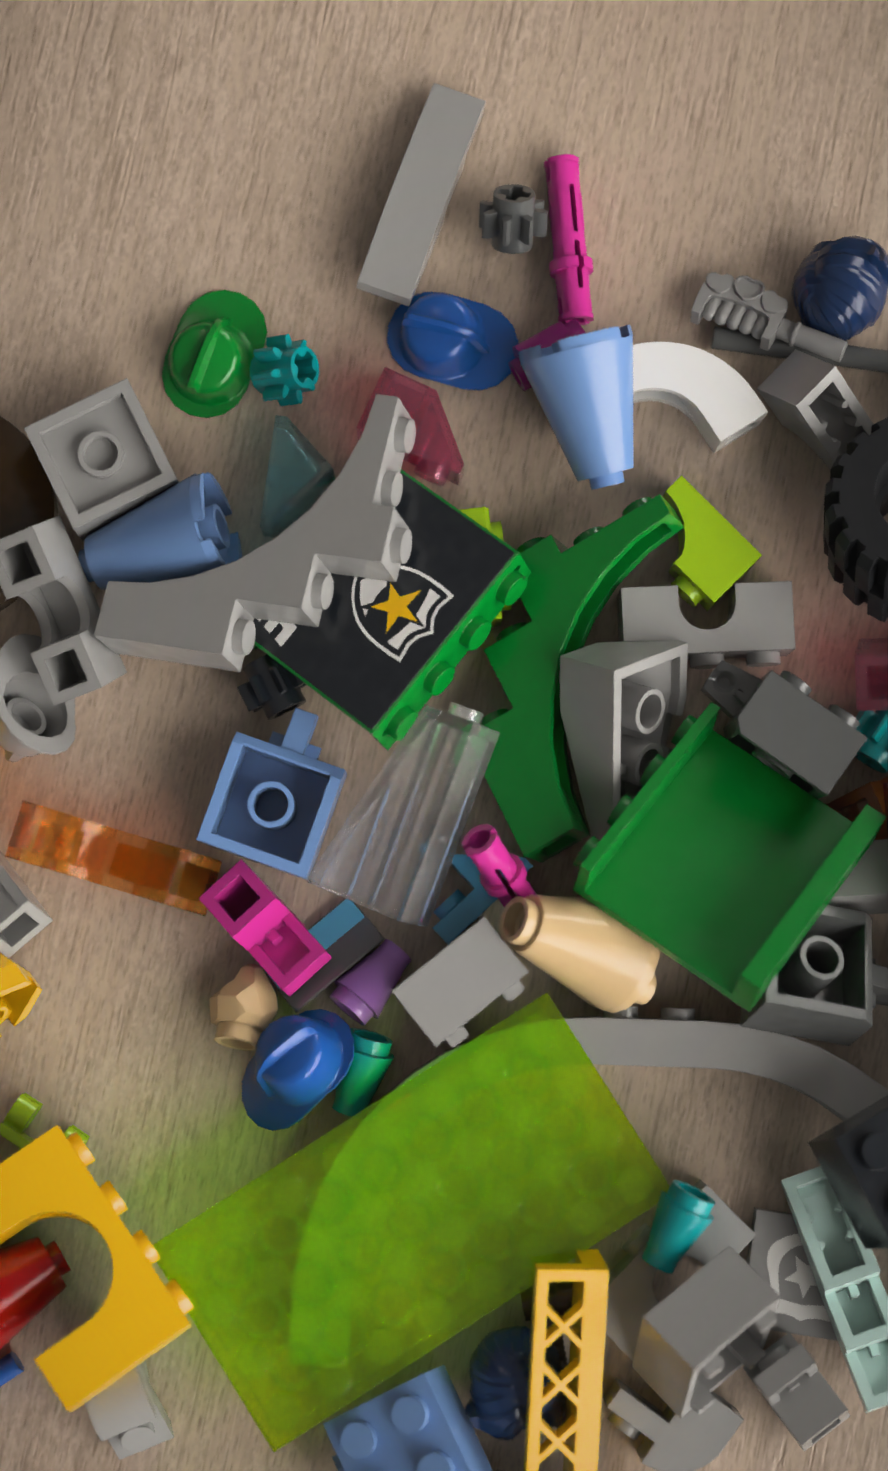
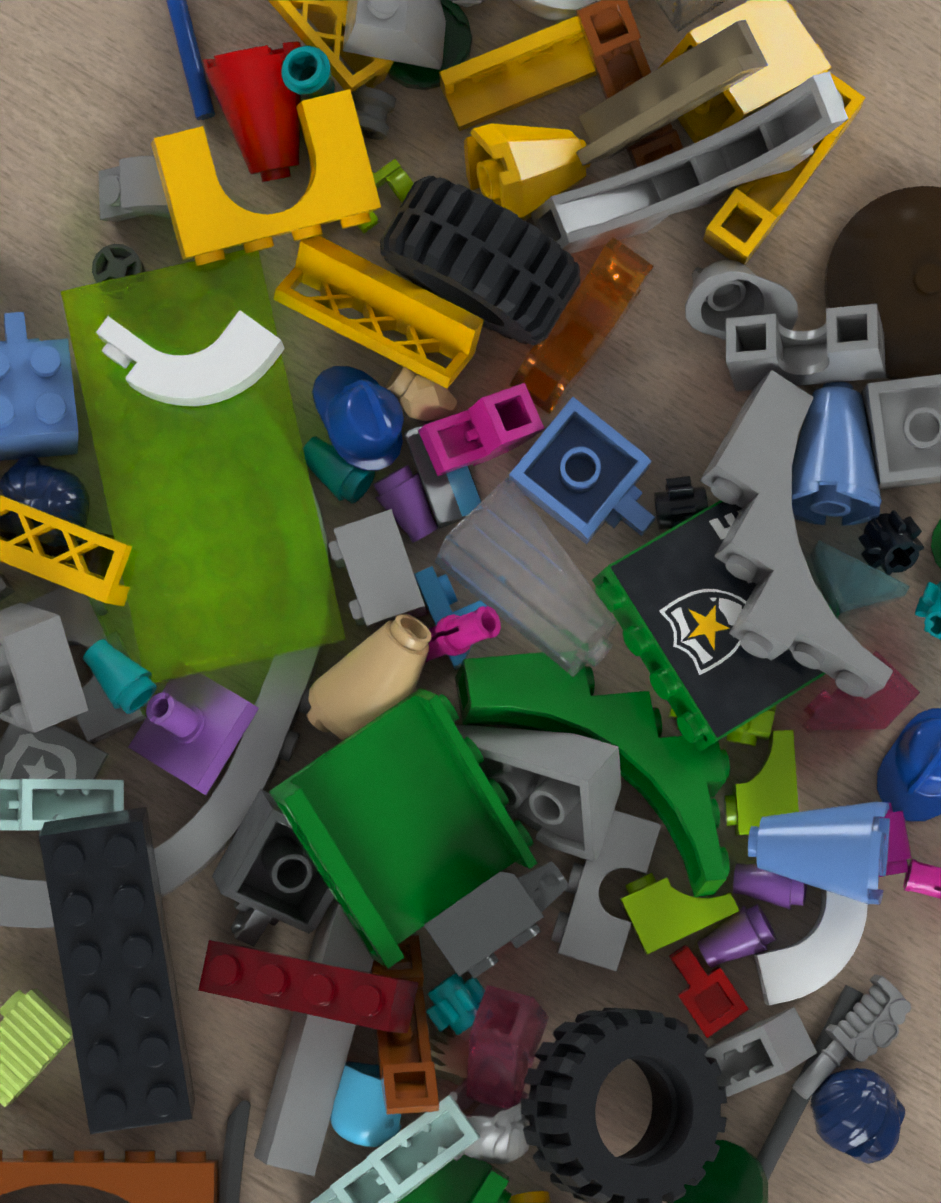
camera: 120 degrees right, 0 degrees up
(79, 992) = (481, 259): none -> black tyre
(162, 1081) = (386, 304): none -> yellow fence
(218, 1403) = (113, 263): none -> dark grey wheel
(234, 452) = (891, 542): none -> black gear
(311, 1242) = (196, 379): none -> white arch
(543, 490) = (769, 791): none -> lime arch
(643, 478) = (768, 886): none -> medium lavender cone
(701, 1123) = (193, 729): none -> medium lavender tile
(706, 471) = (738, 937): none -> medium lavender cone
(776, 481) = (709, 996): none -> red plate

